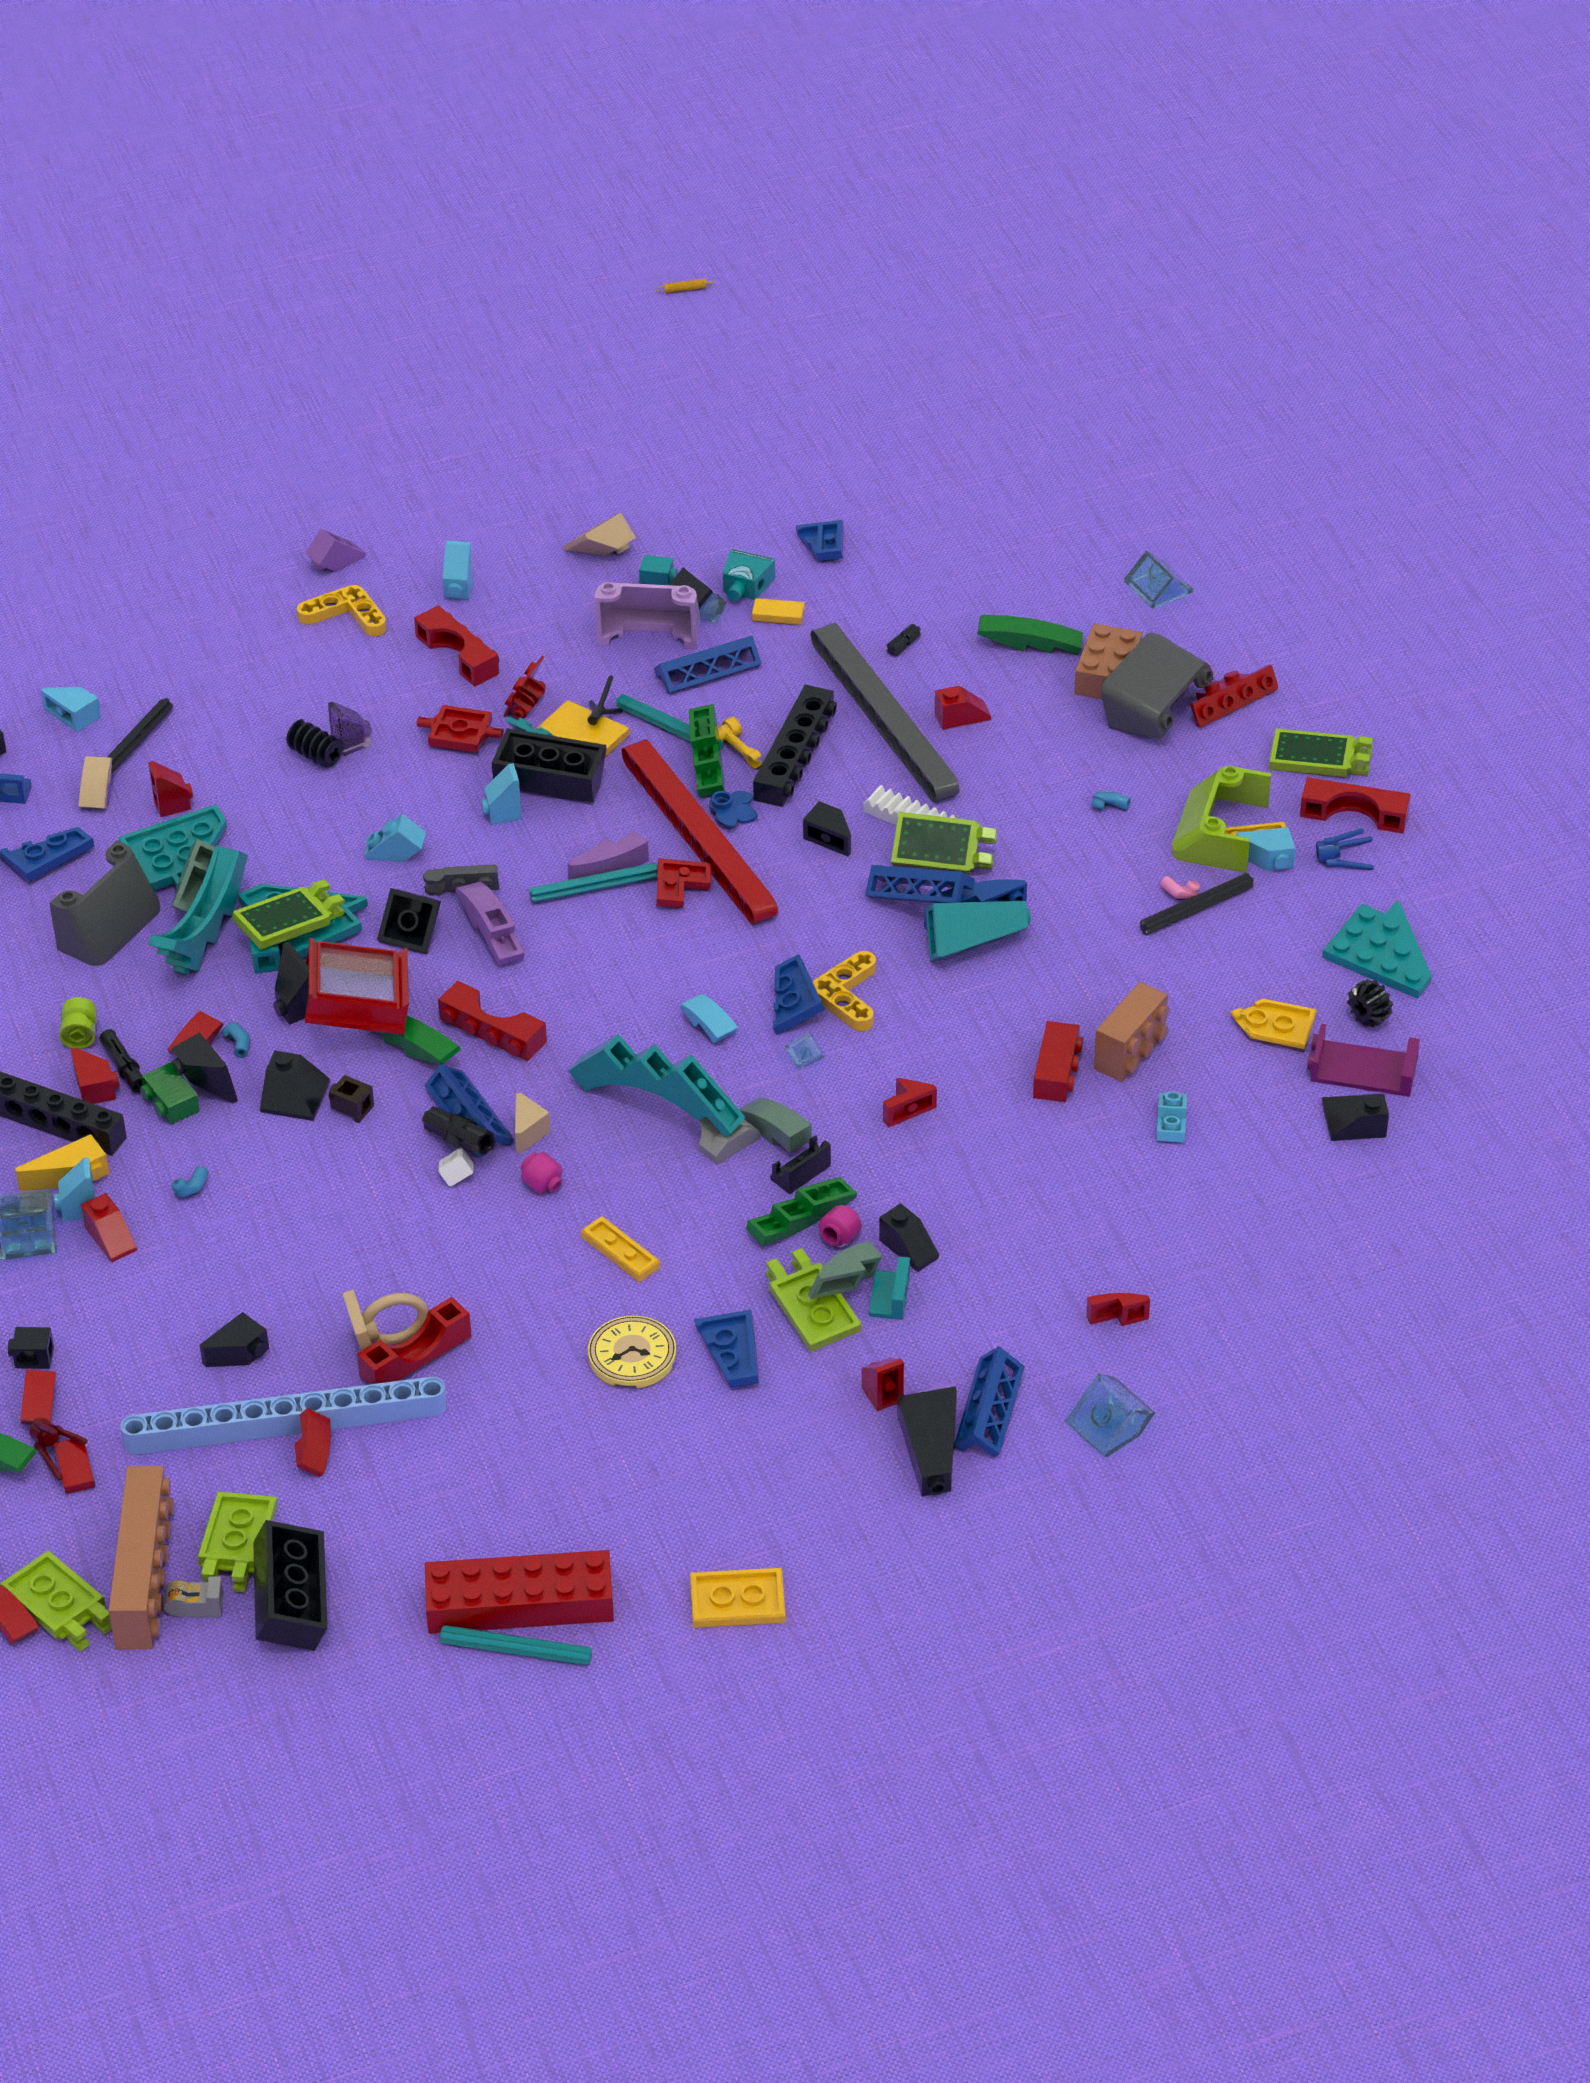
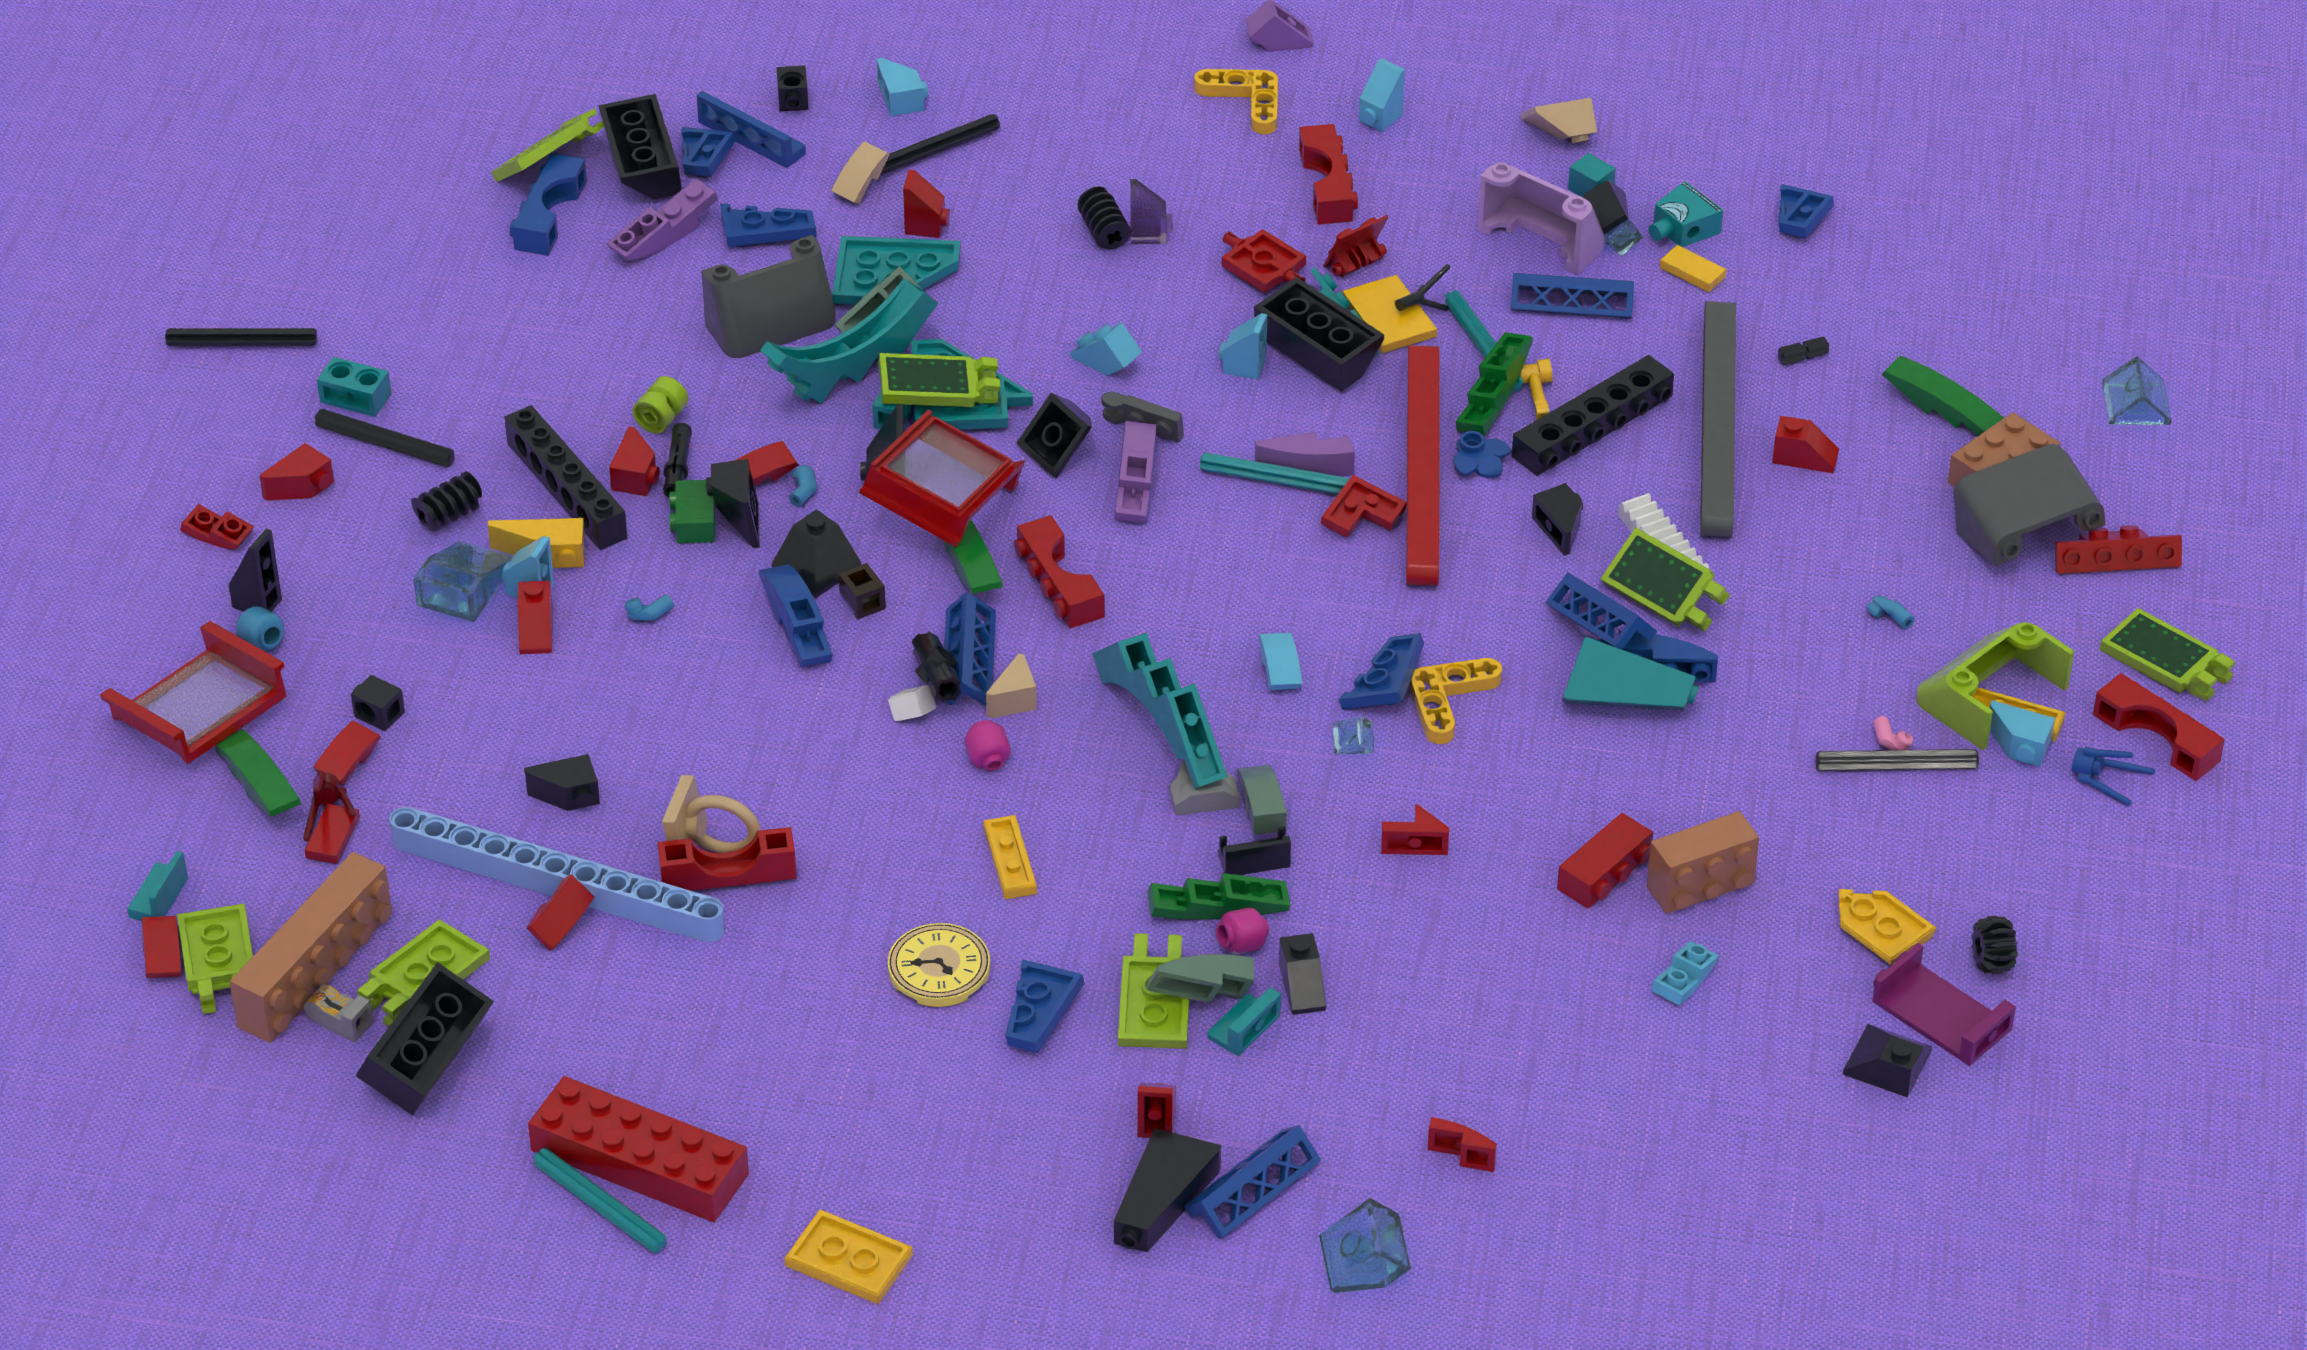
camera: 30 degrees right, 0 degrees up
(313, 1131) = (798, 613): none -> blue slope
(1381, 949) = (2064, 894): teal wing -> none

